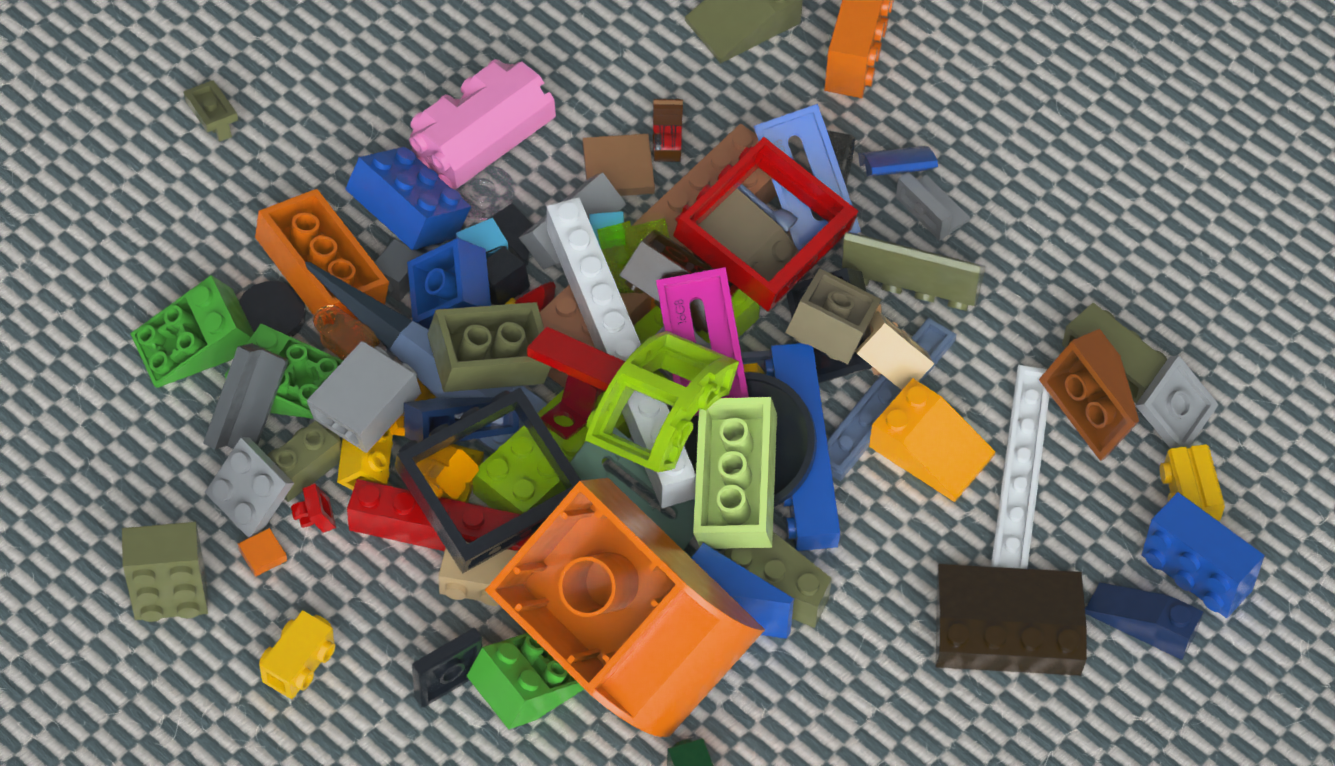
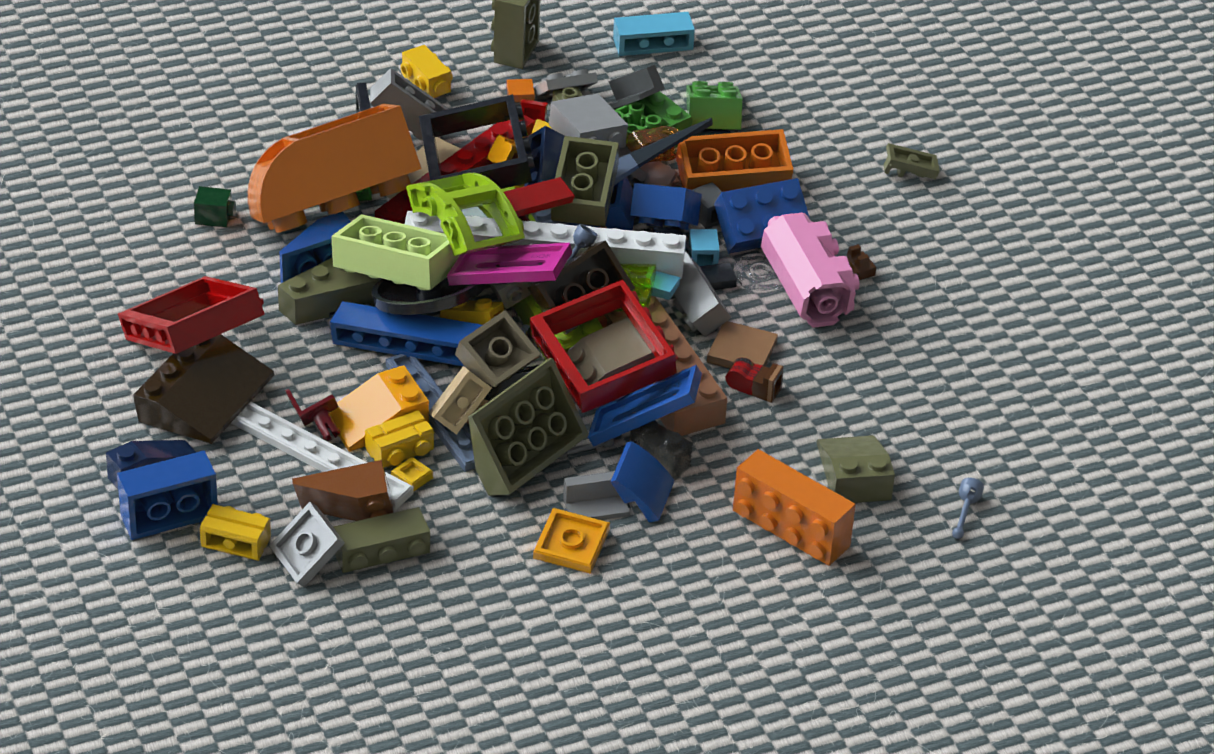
camera: 115 degrees right, 15 degrees down
(74, 448) = (653, 33): none -> medium azure brick
(412, 613) = (397, 90): none -> light grey brick
(414, 104) = (860, 262): none -> reddish brown tile
(624, 284) = (583, 238): none -> sand blue hinge
(866, 649) = (154, 323): none -> red window
(975, 402) = (399, 439): none -> yellow brick
(977, 489) = (319, 414): none -> dark red bracket
(996, 378) = (413, 473): none -> yellow tile
(1001, 203) = (571, 540): none -> light orange tile

